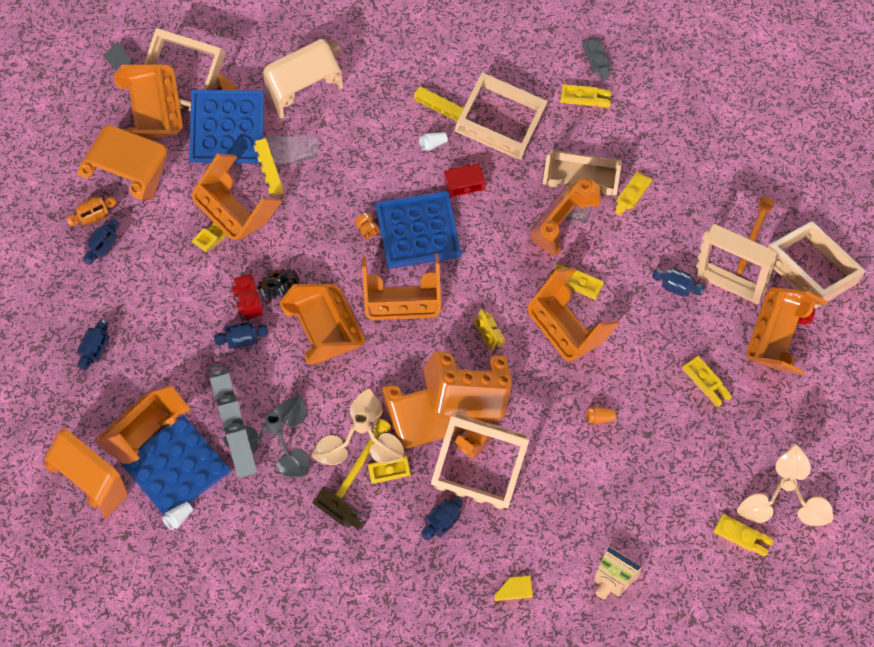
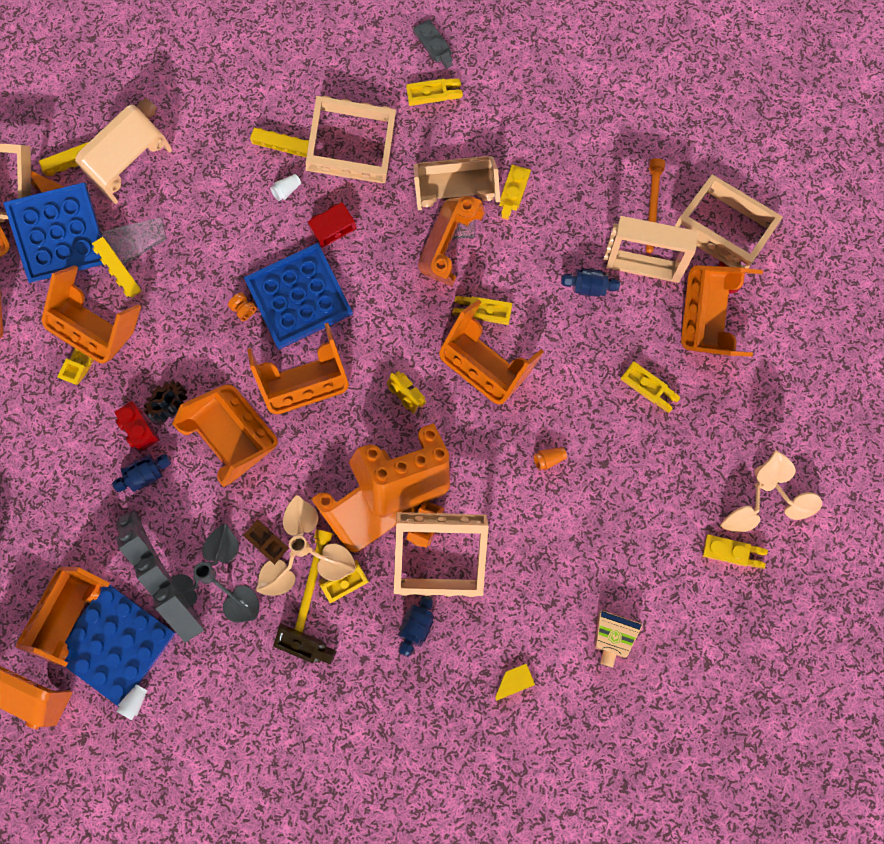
camera: 10 degrees left, 15 degrees up
(246, 73) = (60, 161): none -> yellow piece
(330, 418) = (266, 542): none -> reddish brown slope

